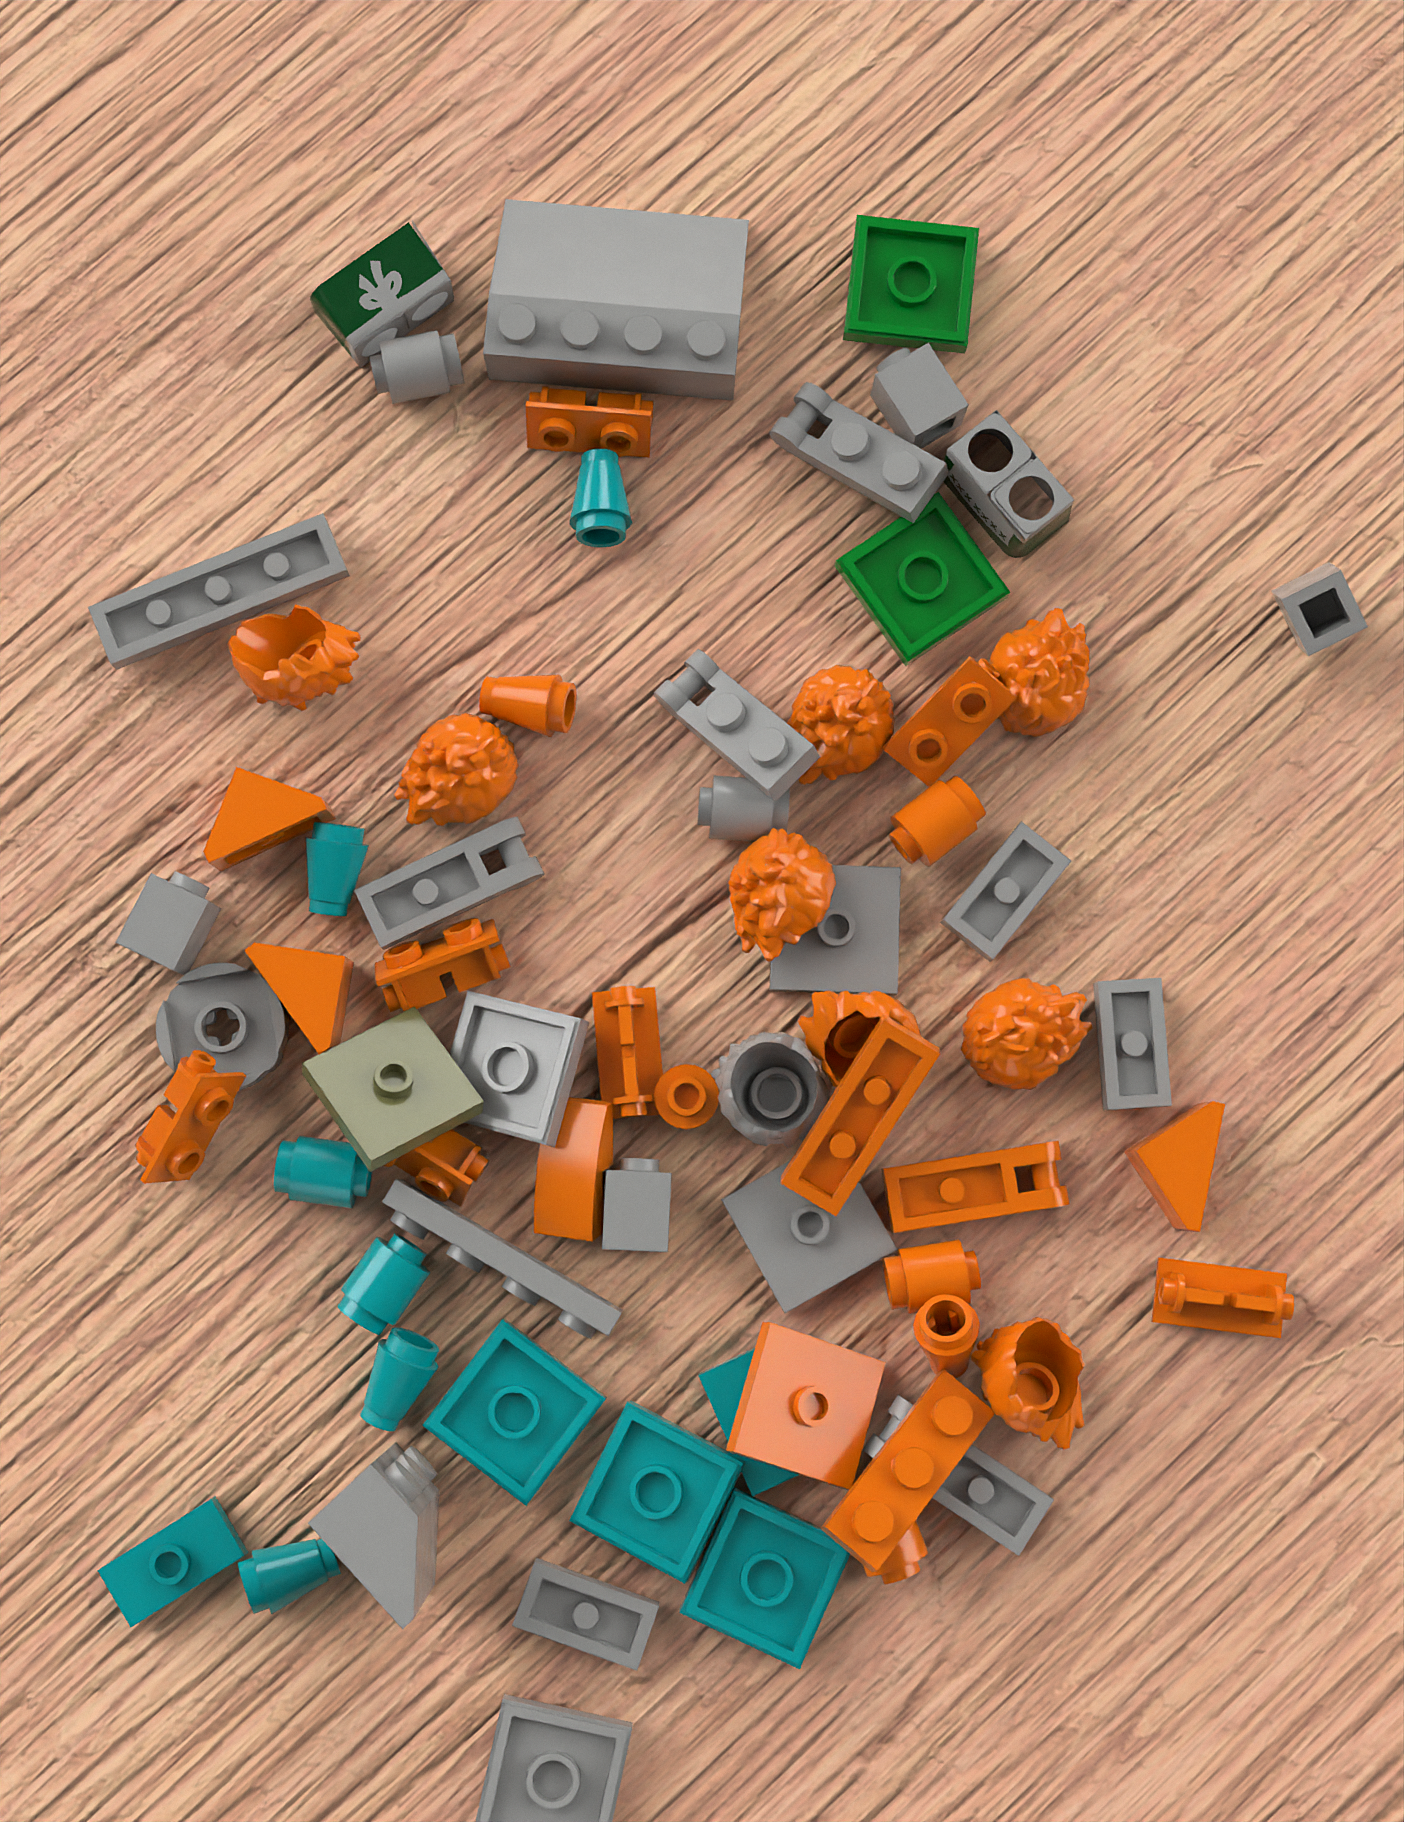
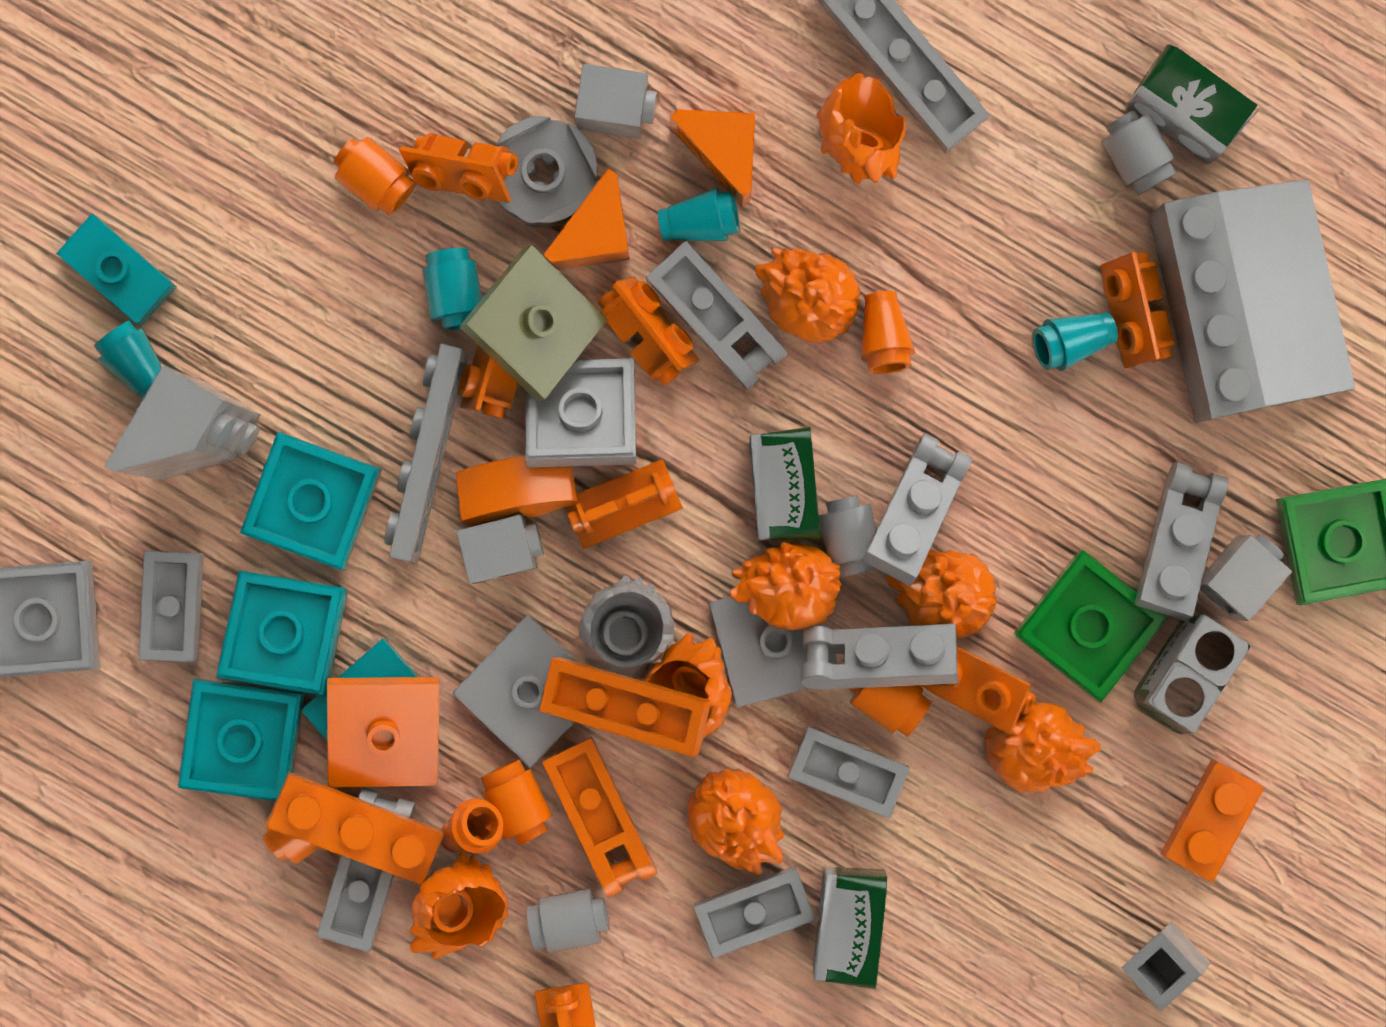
camera: 80 degrees right, 5 degrees up
(163, 1224) = (373, 175): none -> orange brick
(383, 1283) = (379, 365): teal brick -> none
(397, 1377) = (310, 400): teal cone -> none
(664, 863) = (785, 485): none -> piece
(686, 1096) = (600, 561): orange plate -> none
(888, 814) = (880, 656): none -> light grey plate
(1083, 1258) = (567, 921): none -> light grey brick
(1173, 514) = (1212, 820): none -> orange plate
(1179, 940) = (850, 926): none -> piece
(1179, 1163) = (669, 977): orange slope -> none

